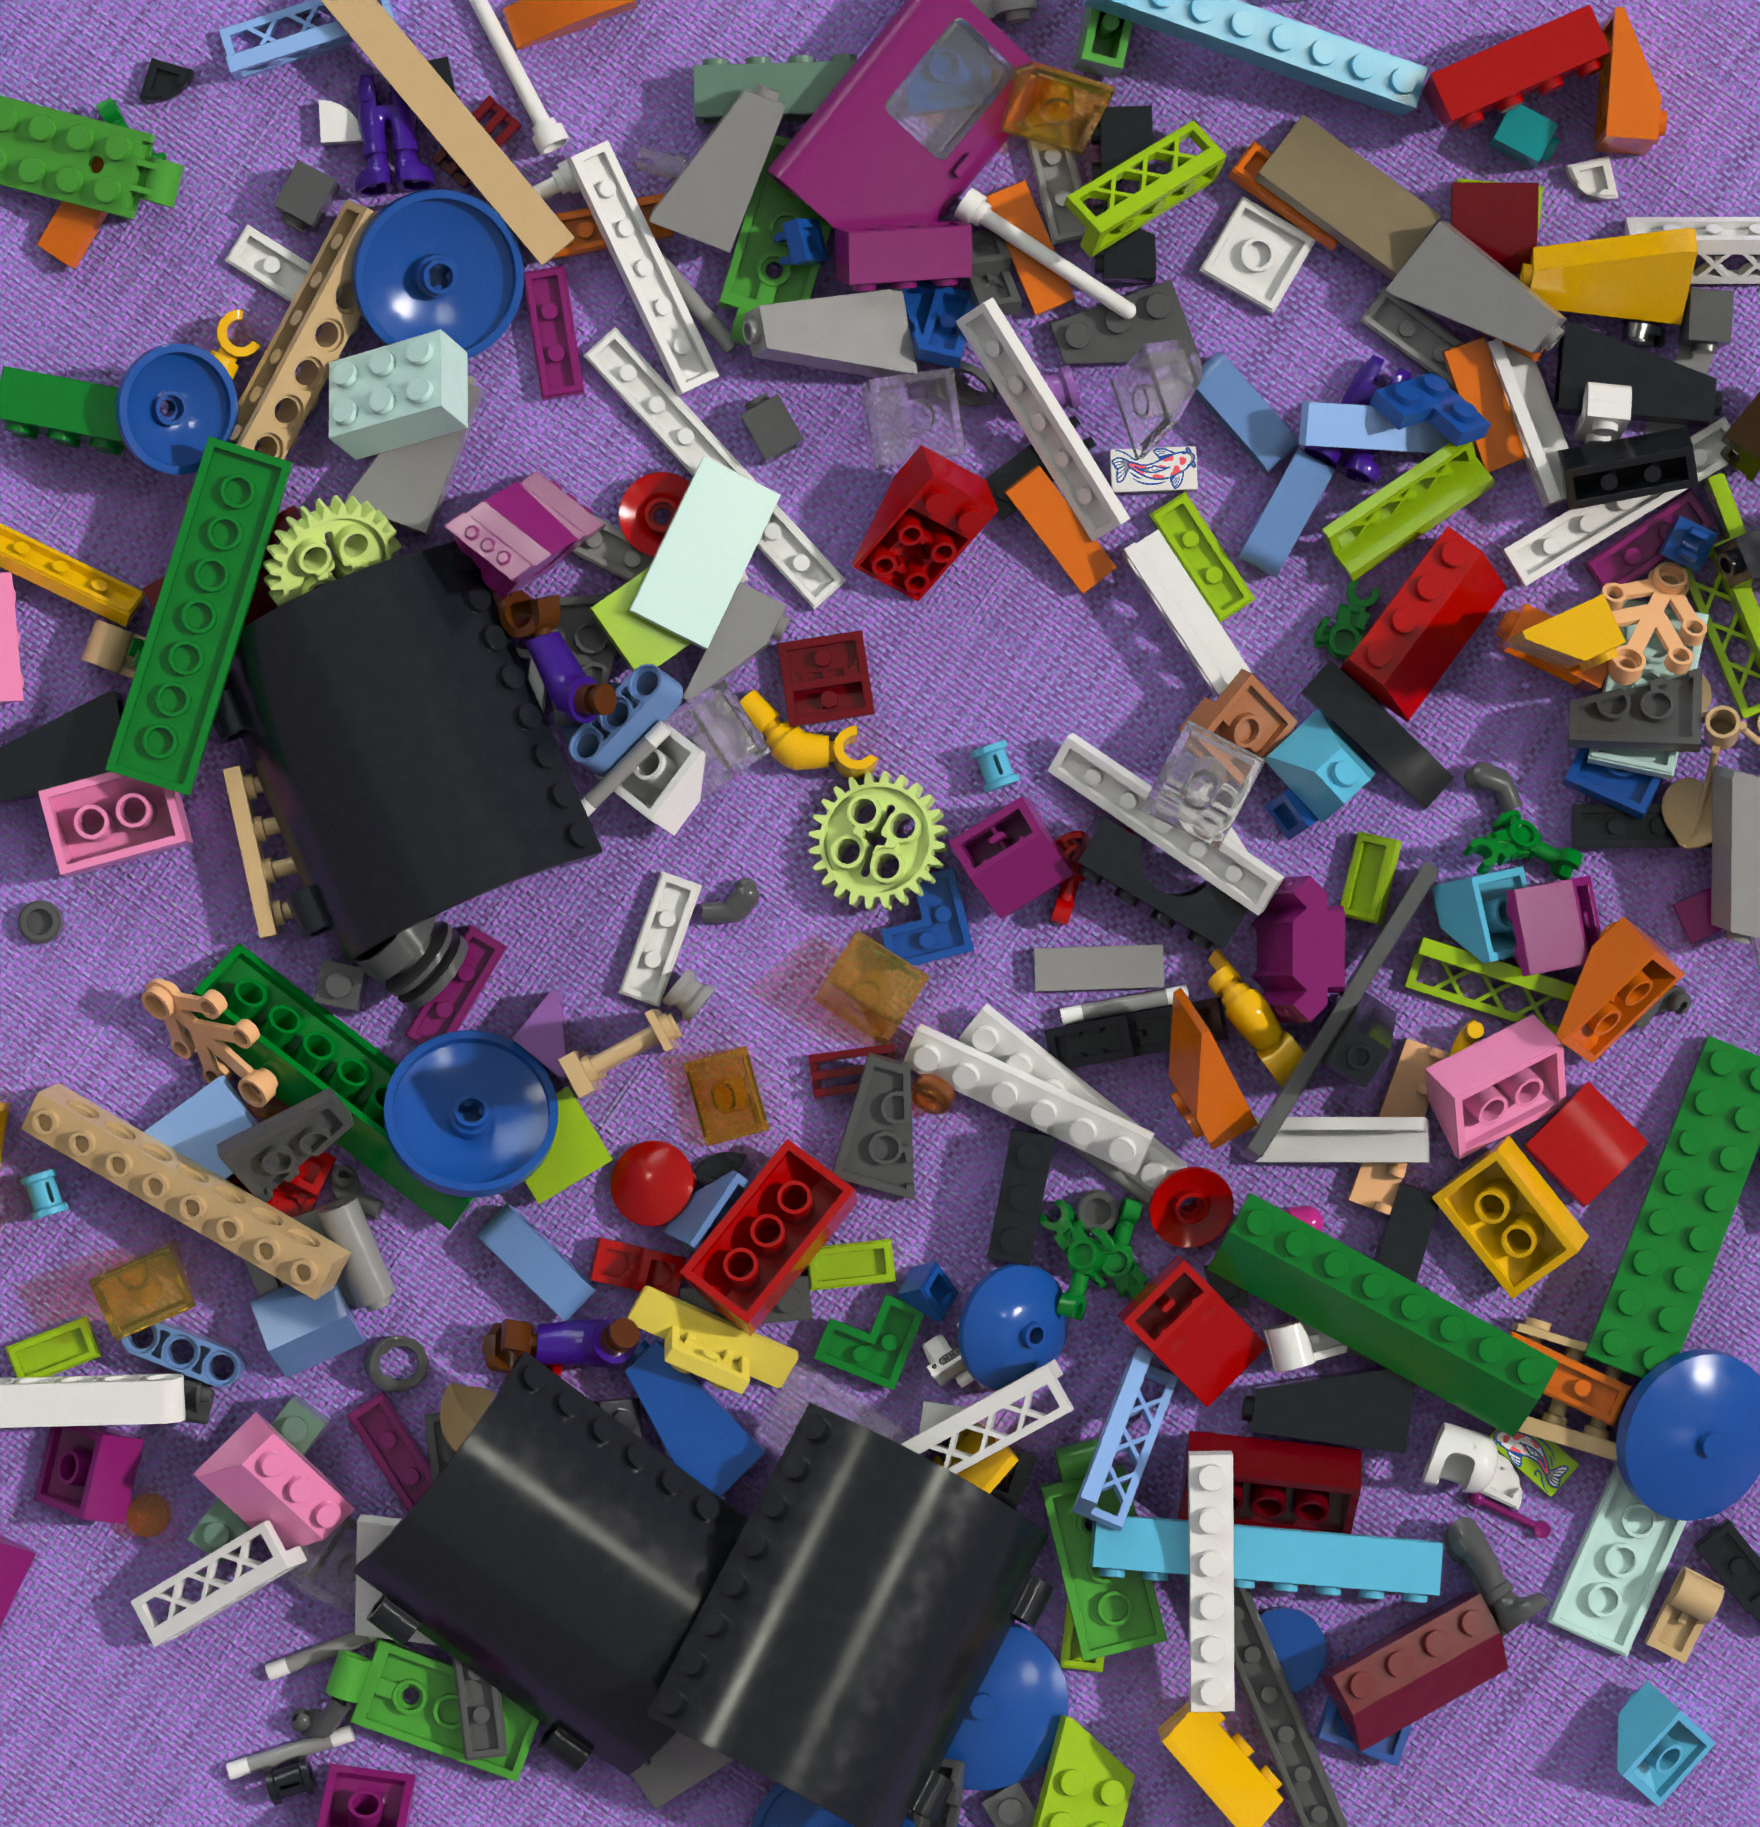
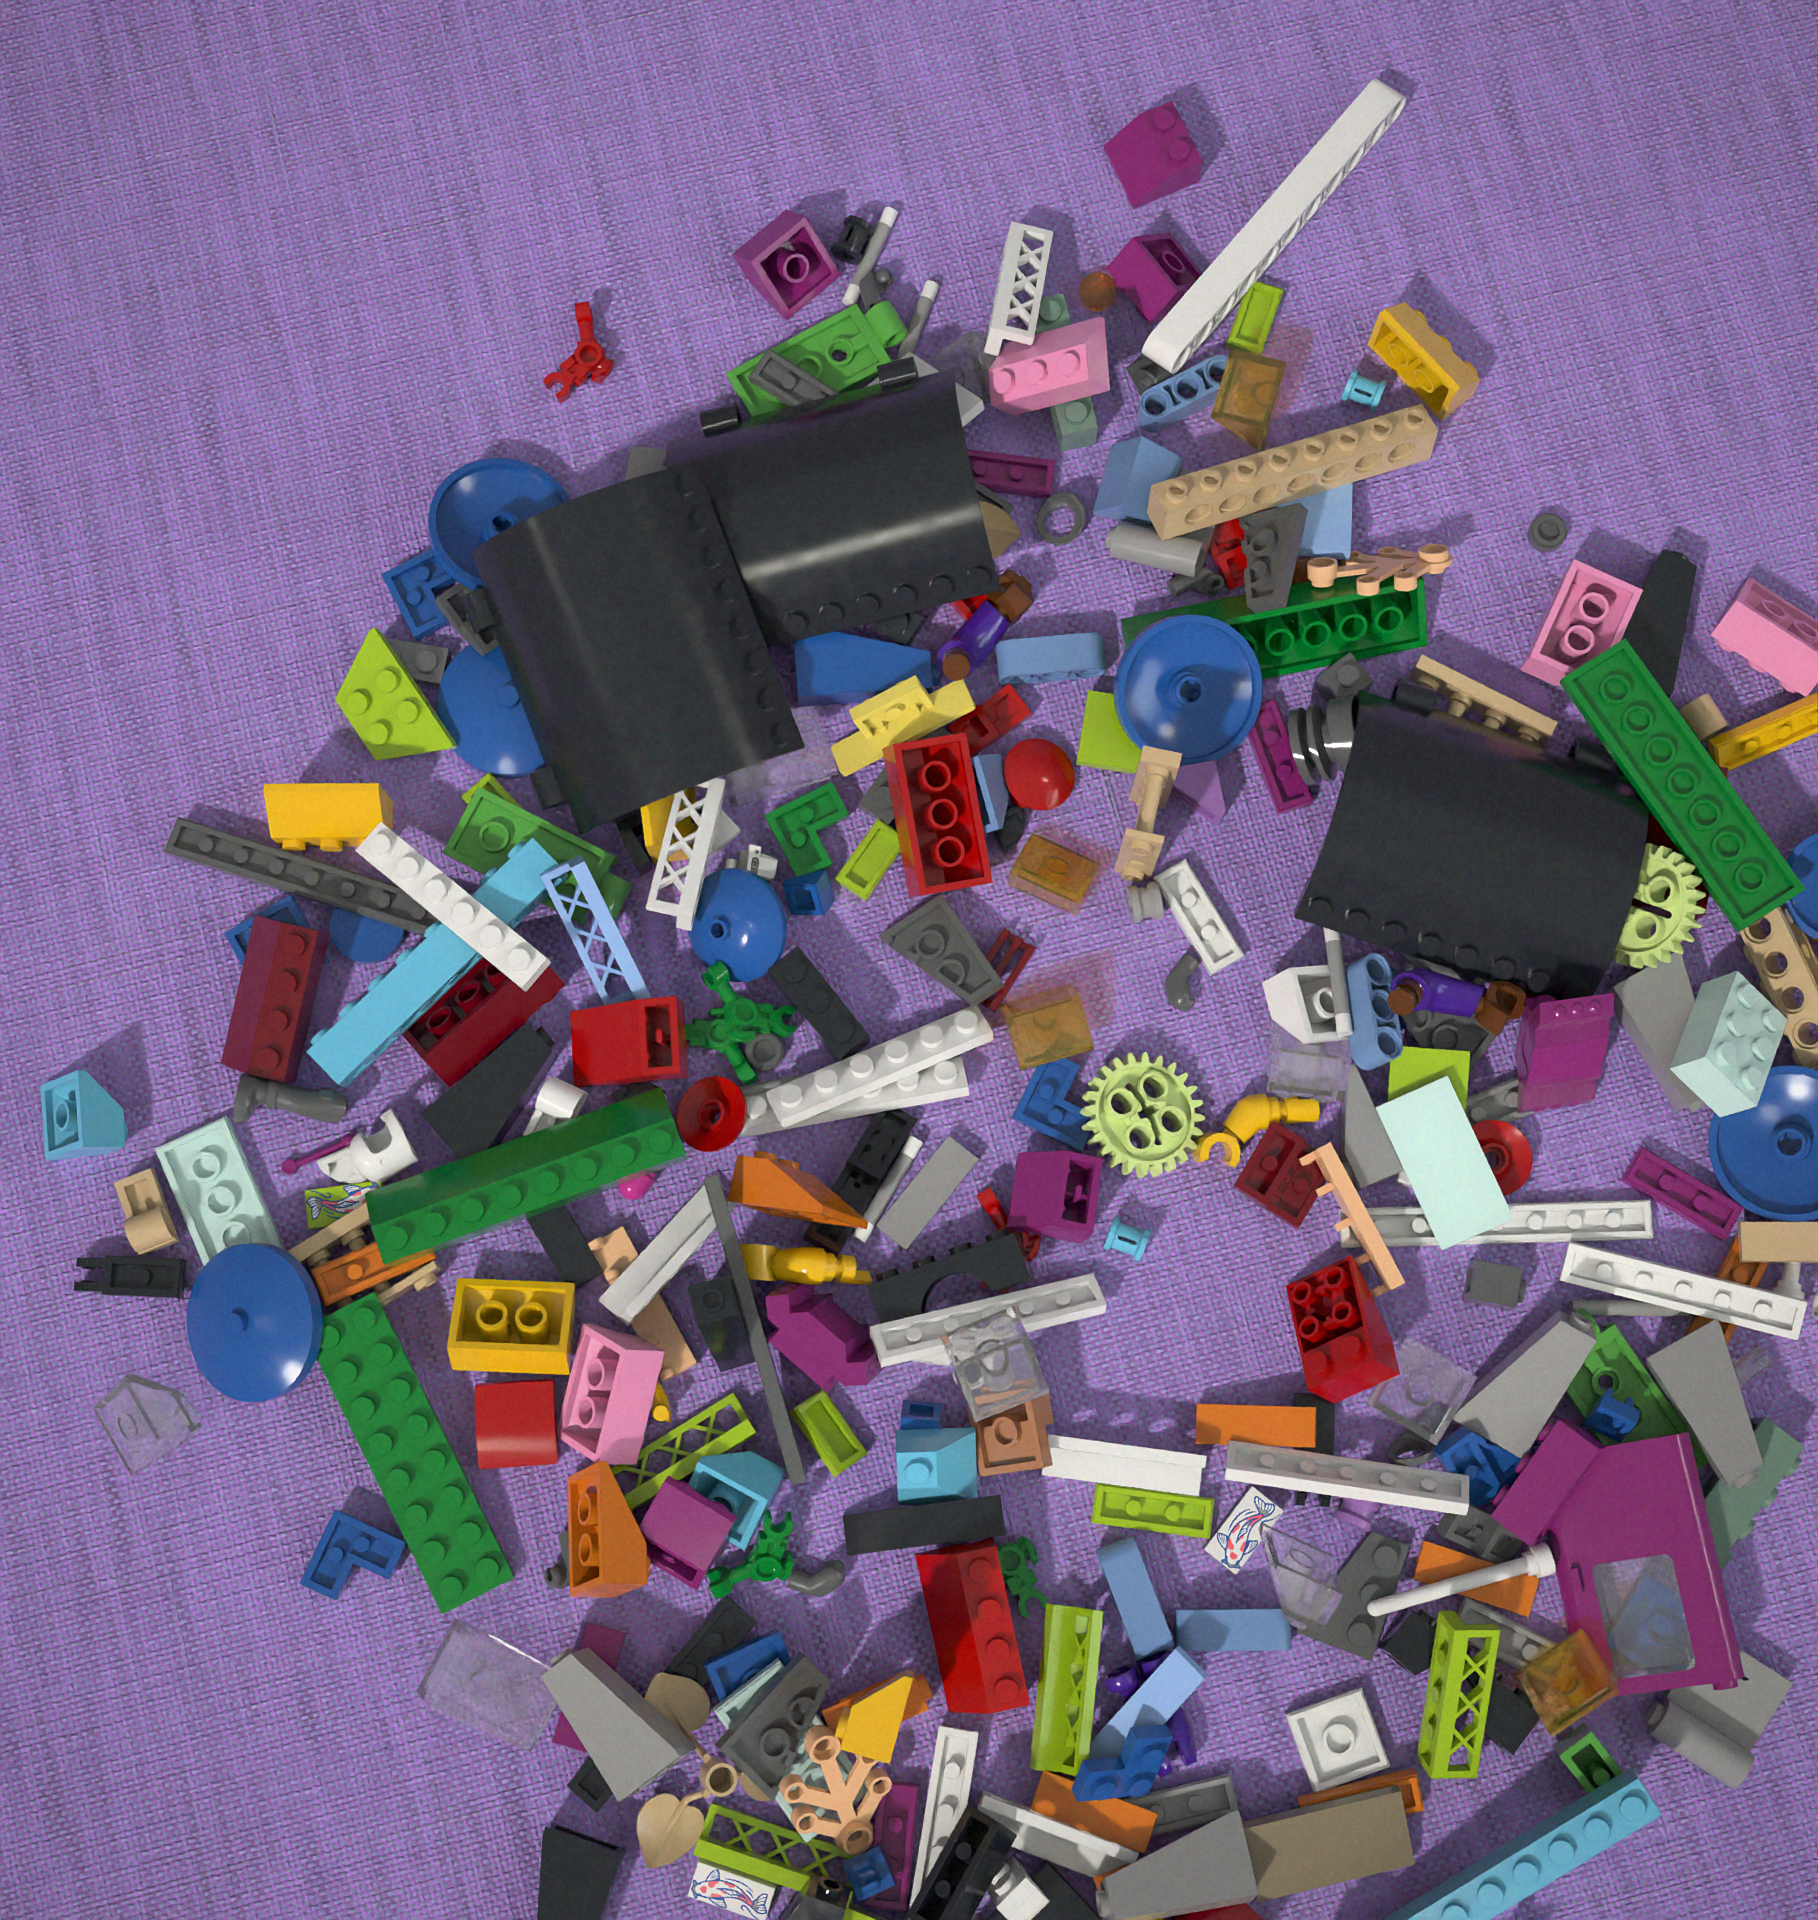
camera: 130 degrees right, 10 degrees down
(814, 588) = (1356, 1217): none -> light nougat hinge
(932, 1094) = (938, 1006): clear orange tile -> none

